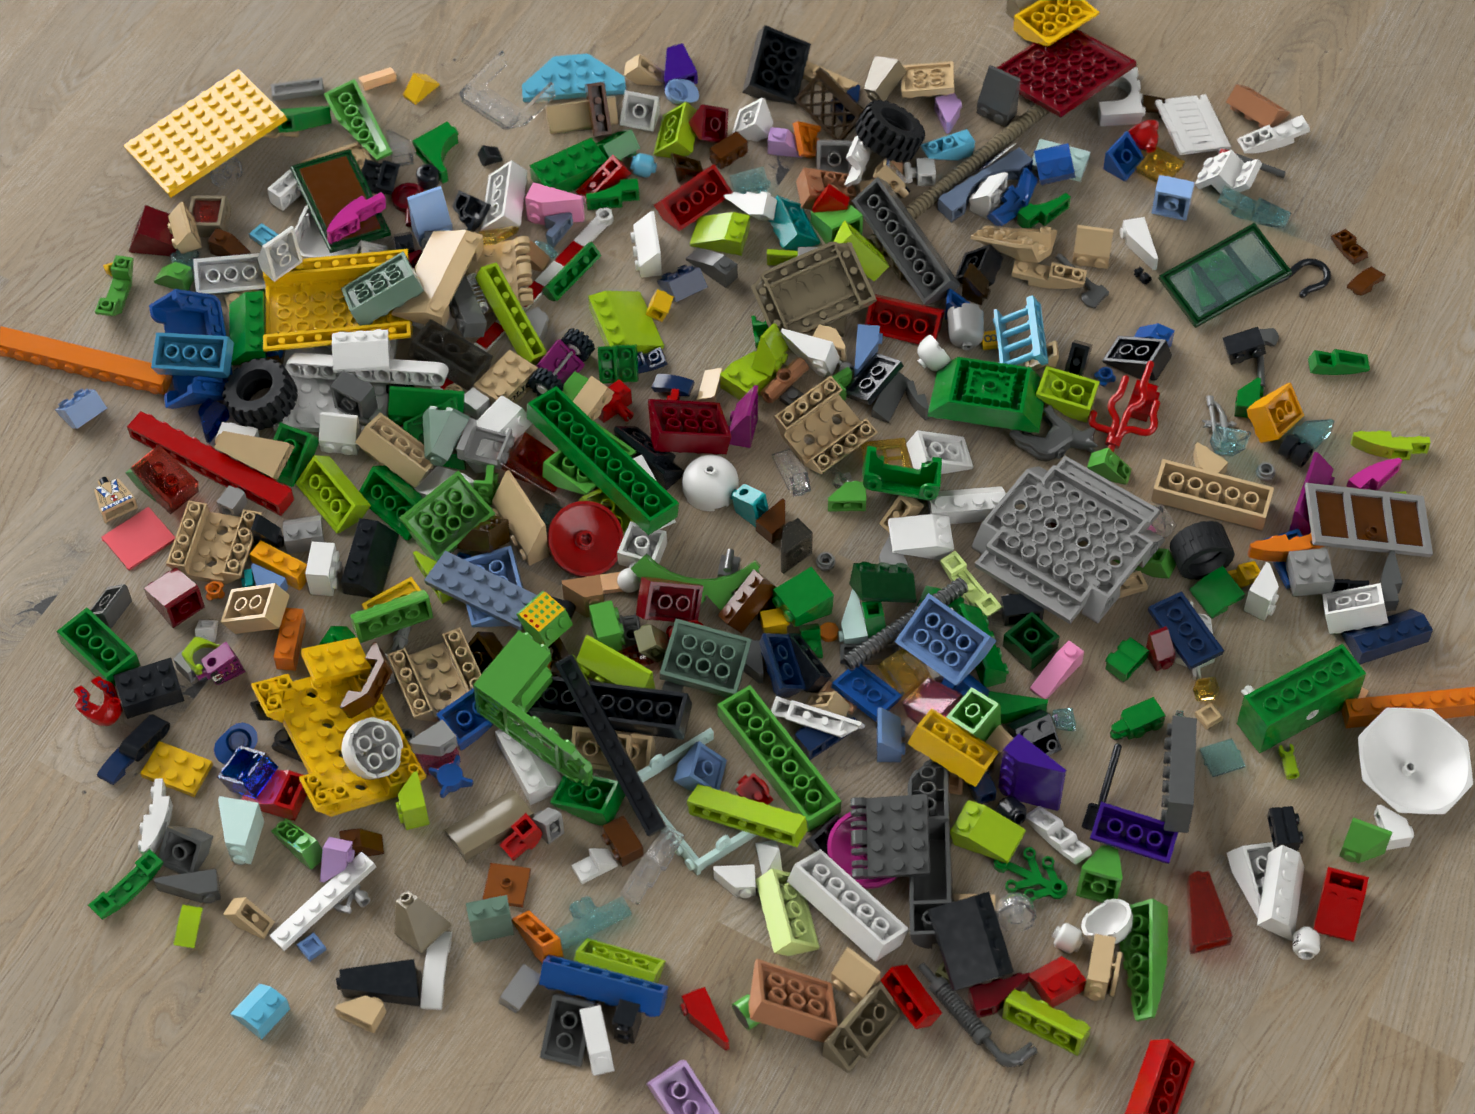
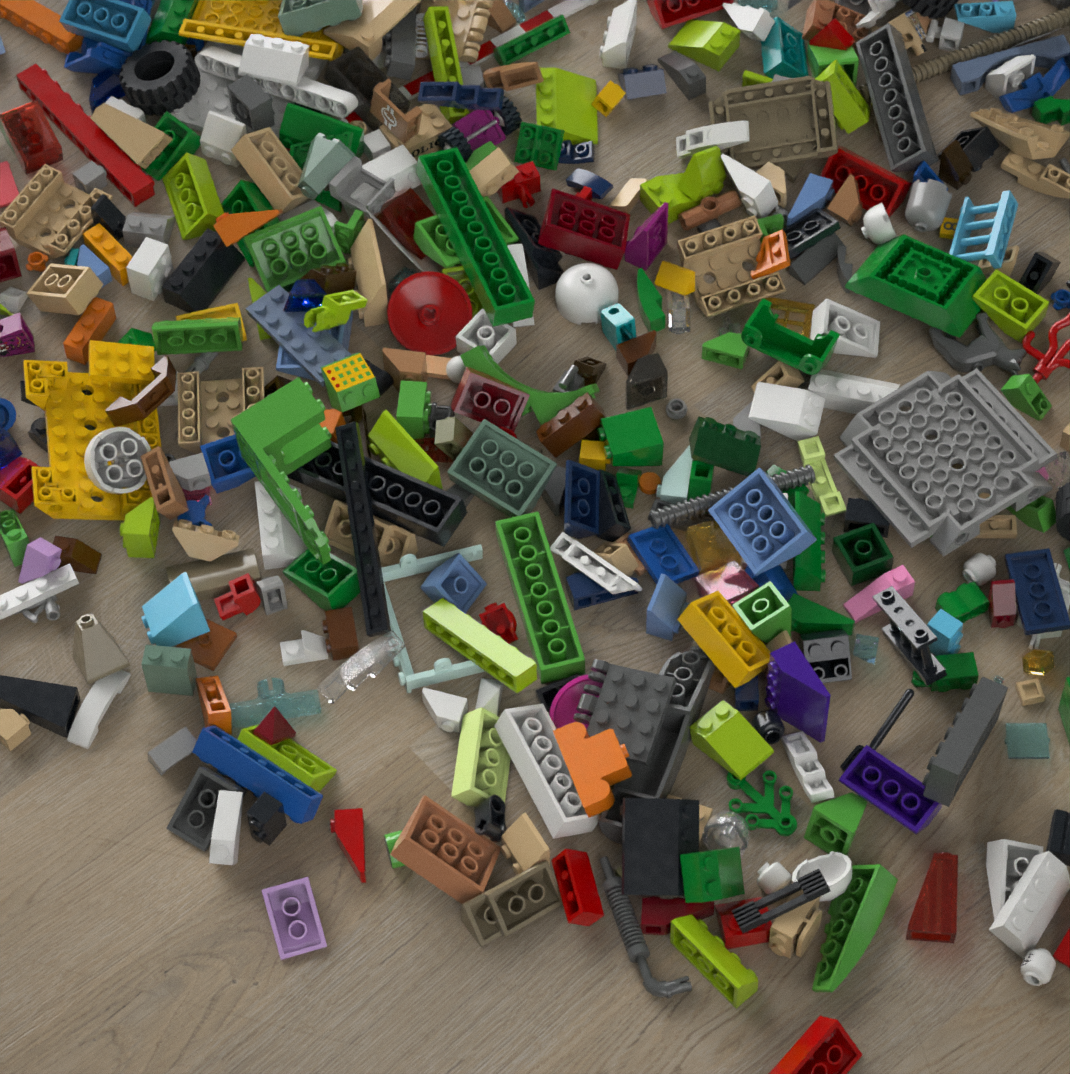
camera: 20 degrees right, 0 degrees up
(394, 506) = (238, 225): none -> orange slope
(420, 757) = (163, 484): none -> medium nougat slope
(472, 796) = (204, 541): none -> tan slope
(473, 868) = (174, 614): none -> medium azure slope
(475, 555) = (304, 296): none -> clear blue slope
(486, 373) = (400, 124): none -> medium nougat panel
(506, 560) = (334, 310): none -> lime plate
(537, 339) = (460, 96): none -> dark blue slope
(572, 308) = (513, 76): none -> medium nougat slope
(601, 941) = (274, 728): none -> dark red slope
(741, 548) = (590, 369): none -> dark brown slope
(765, 317) = (721, 135): none -> white slope
(766, 475) = (649, 303): none -> green slope
(781, 448) = (675, 278): none -> yellow slope
(815, 961) = (491, 818): none -> black piece
(856, 405) = (772, 256): none -> orange wing
(887, 888) = (593, 764): none -> orange brick
(898, 342) = (847, 202): none -> medium nougat slope
(1019, 951) = (712, 875): none -> green slope
(1101, 699) = (909, 636): none -> black fence
(1109, 933) = (813, 886): none -> black container
(1124, 689) = (948, 633): none -> medium azure brick
(1129, 625) = (979, 569): none -> white head

